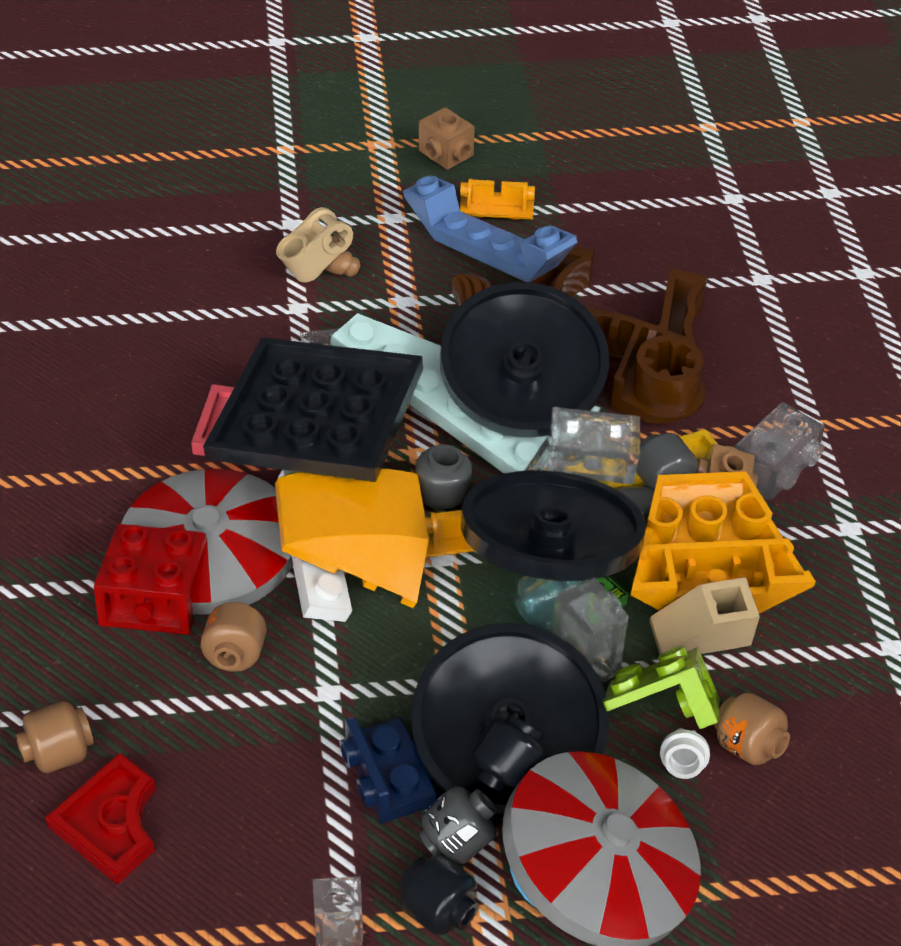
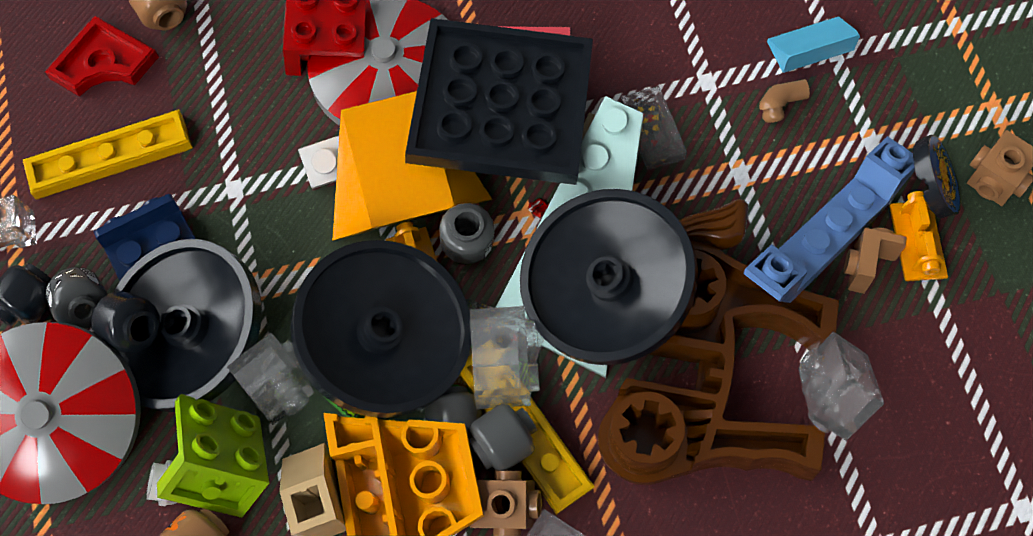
camera: 85 degrees right, 20 degrees up
(235, 634) = (268, 101): medium nougat head -> none
(254, 816) = (107, 154): none -> yellow tile
(275, 222) = (813, 43): none -> medium azure slope
(310, 244) = (776, 67): tan piece -> none
(411, 440) = (538, 207): none -> red piece
(449, 168) = (935, 166): none -> tile
(512, 222) = (863, 259): none -> medium nougat bracket
(637, 249) = (839, 386): none -> clear brick

